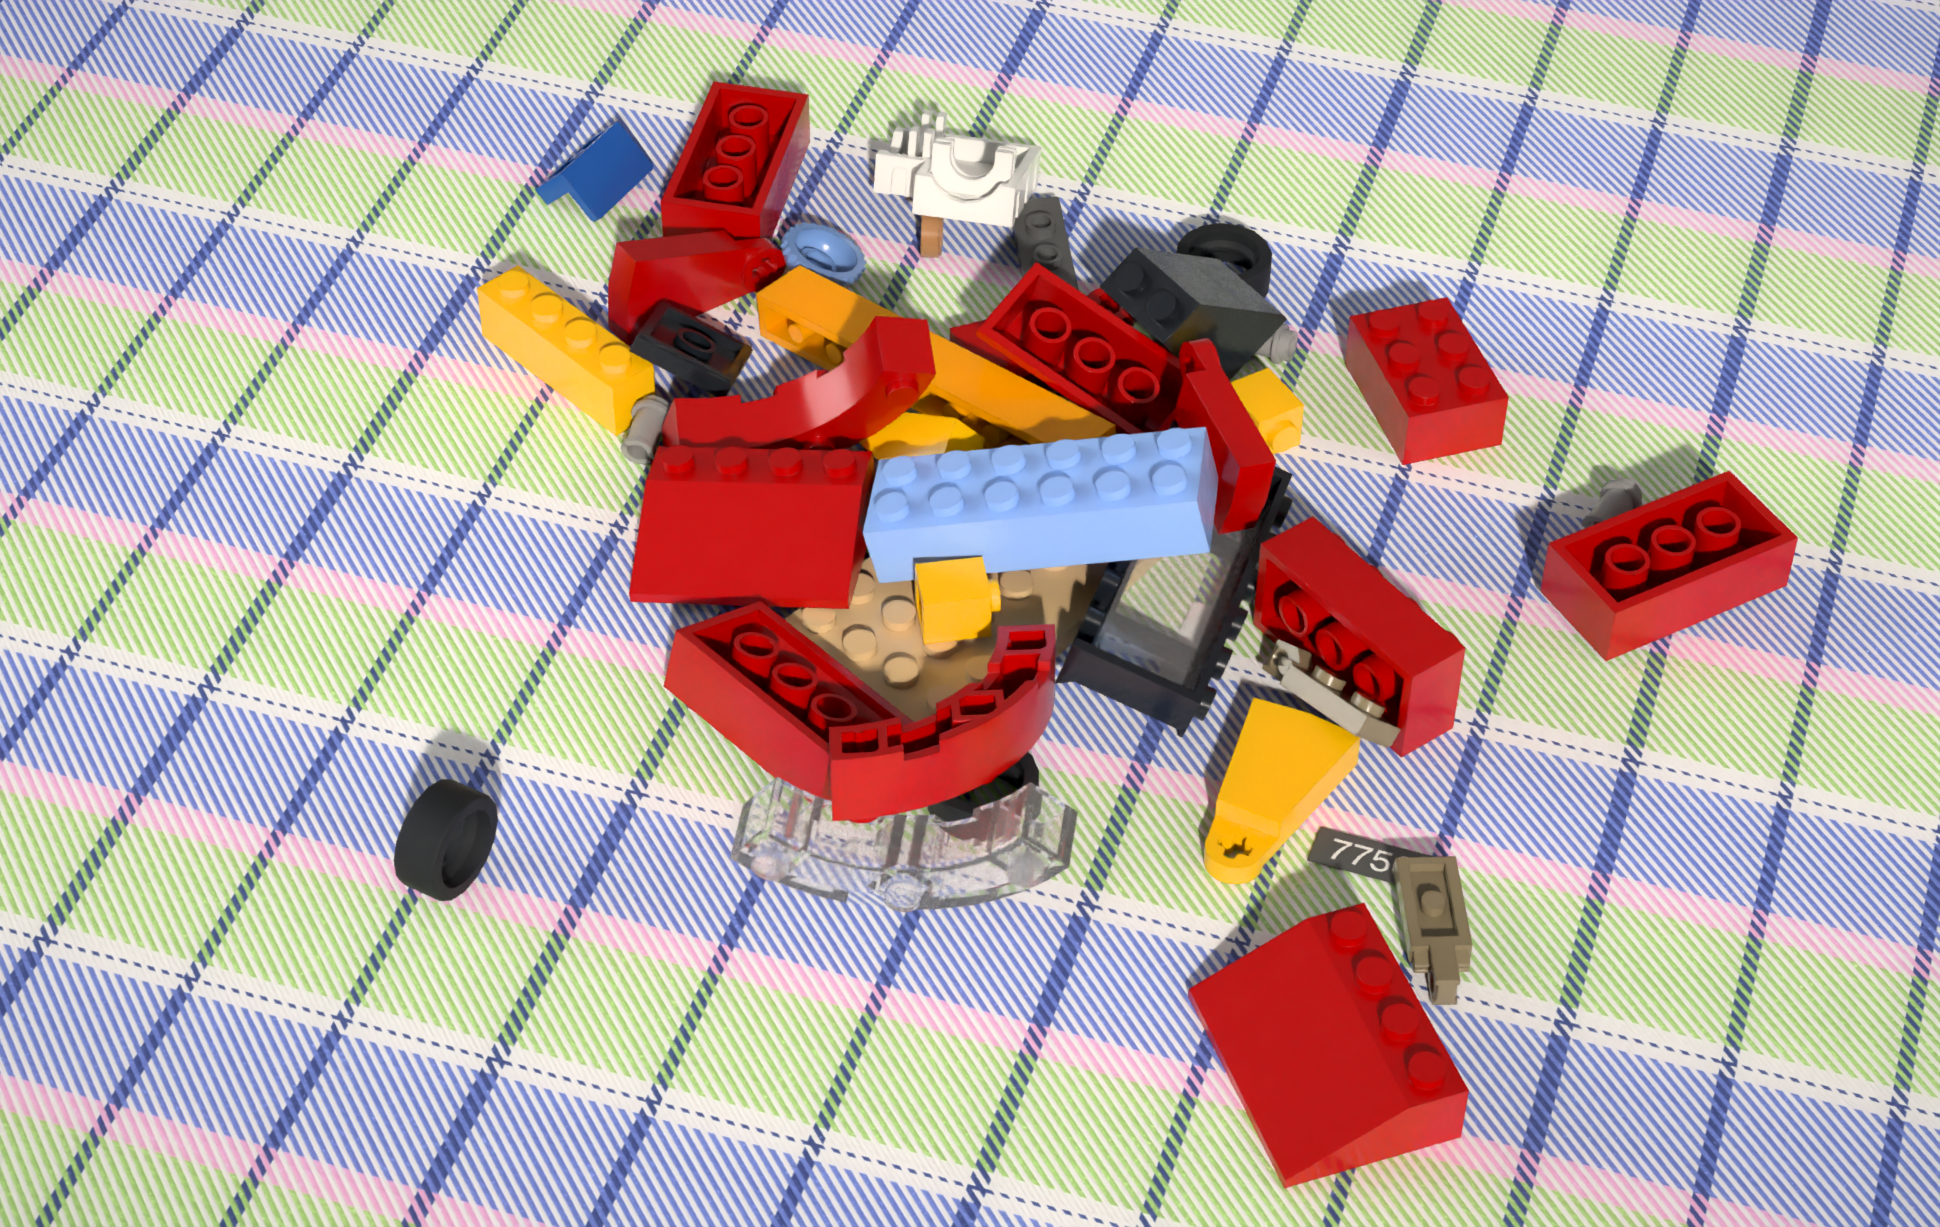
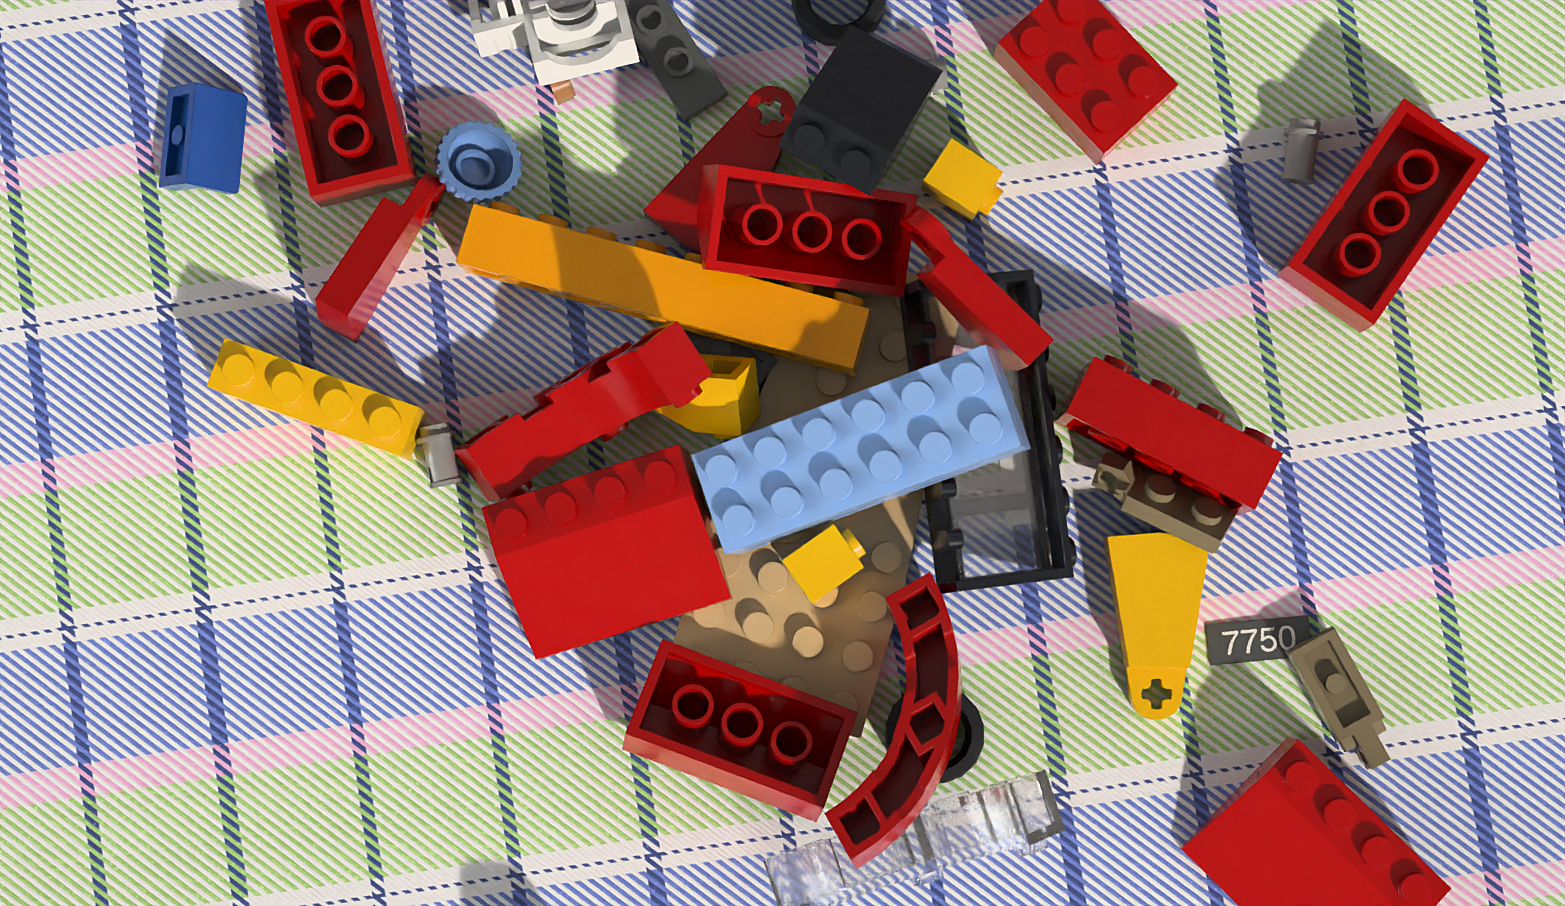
camera: 25 degrees left, 40 degrees up
(691, 349) = (435, 358): black tile -> none

